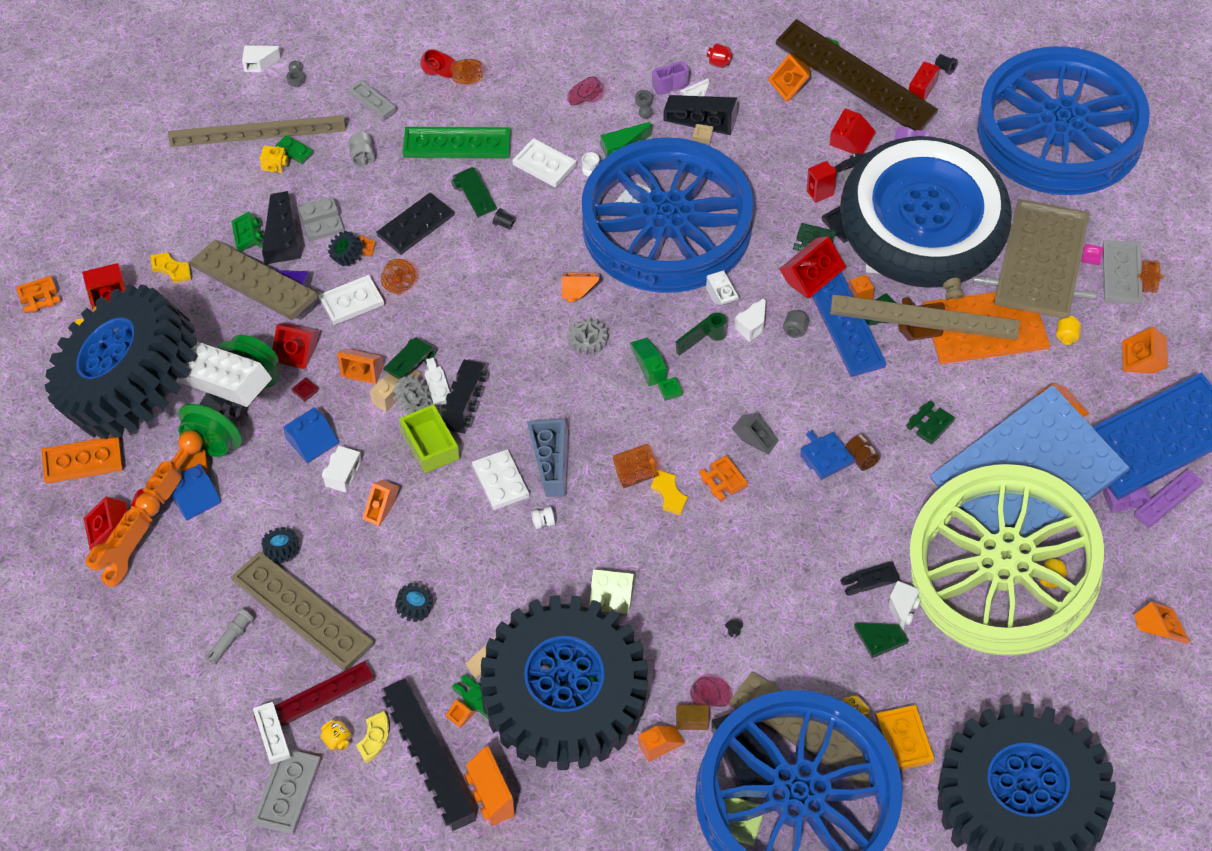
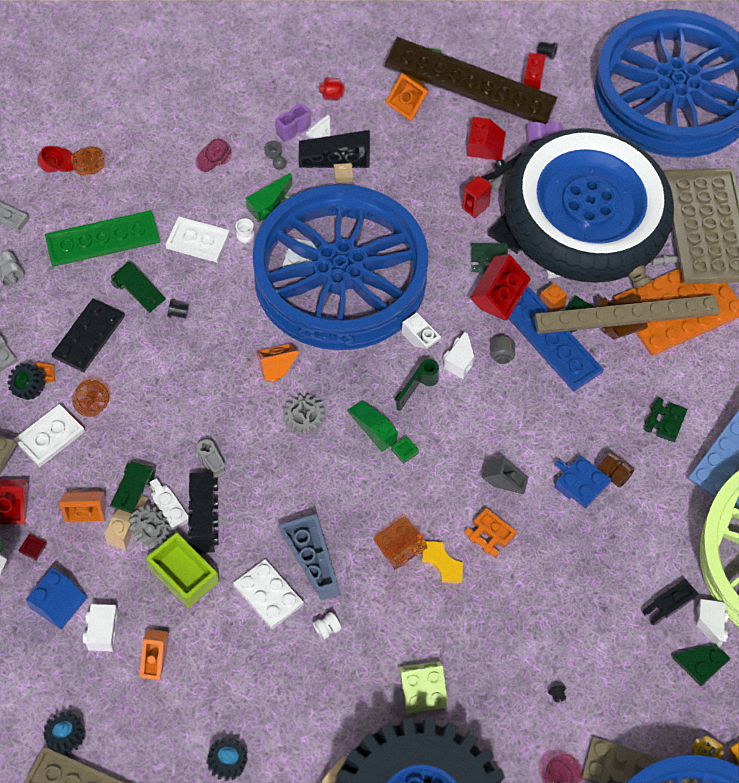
camera: 20 degrees left, 5 degrees up
(488, 352) = (211, 458): none -> light grey piece

